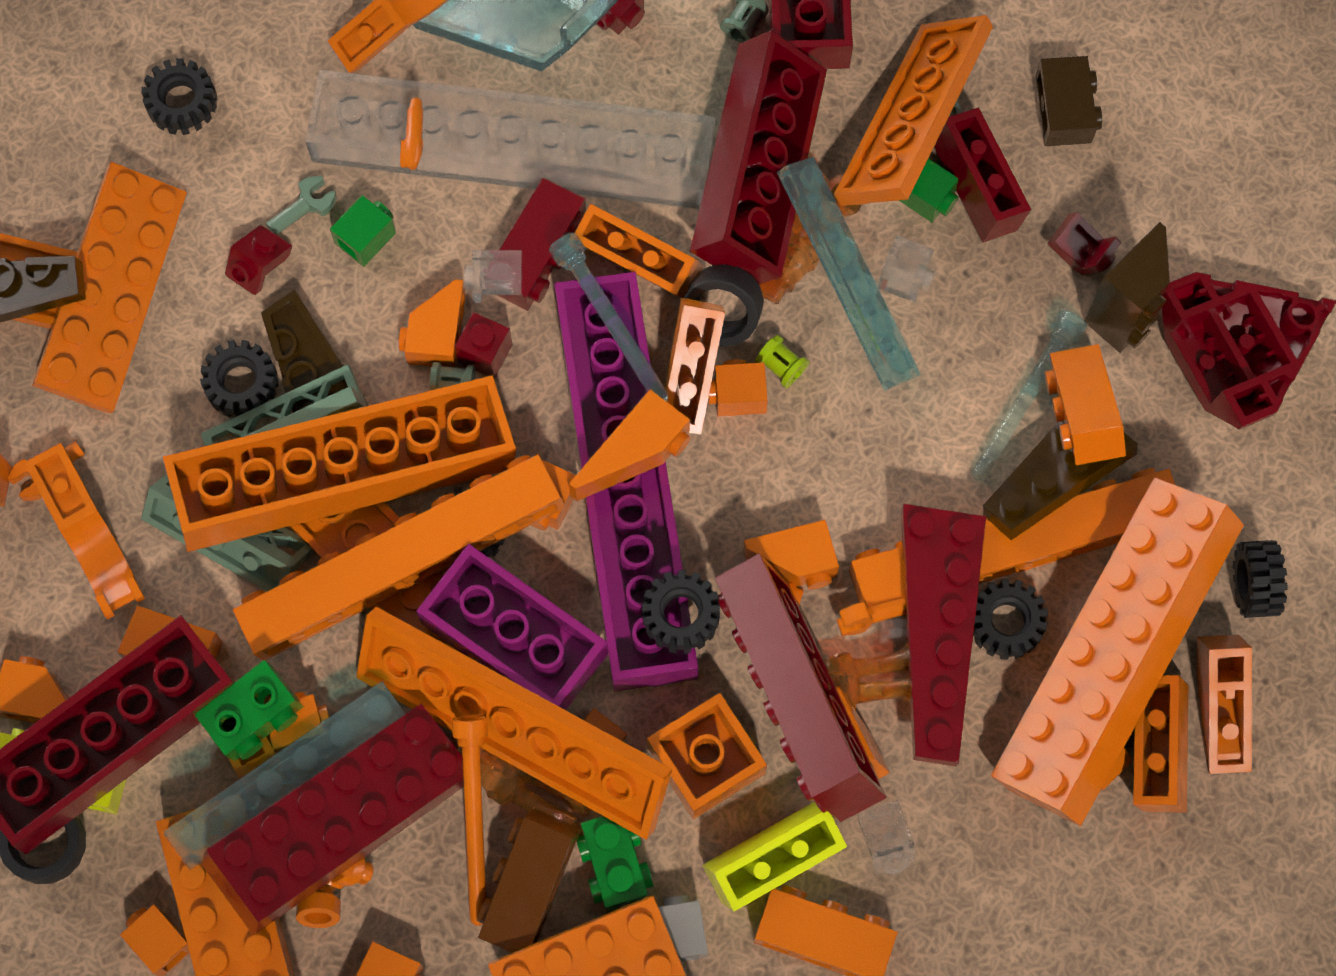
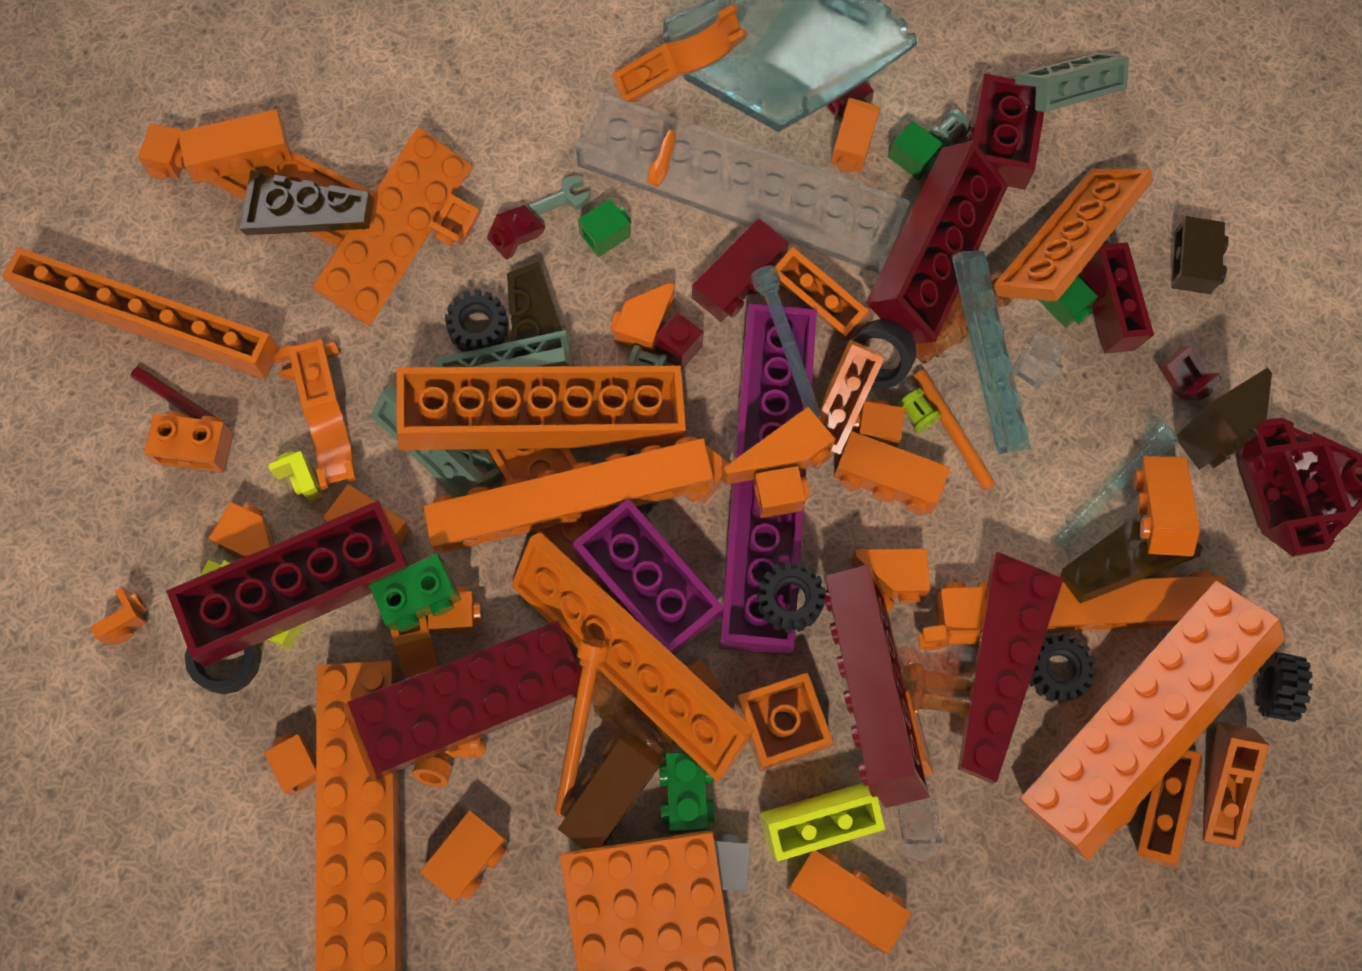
camera: 10 degrees right, 0 degrees up
(81, 611) = (303, 478): none -> neon yellow bracket
(169, 78) = (480, 75): black tyre -> none
(182, 264) = (455, 221): none -> orange bracket
(283, 773) = (430, 651): clear light blue plate -> none
(494, 273) = (701, 284): clear bracket -> none
(633, 52) = (855, 135): none -> orange slope
(641, 494) = (780, 491): none -> orange brick
(709, 51) = (915, 150): none -> green brick
(765, 442) = (891, 473): none -> orange brick
(828, 373) = (954, 430): none -> orange bar

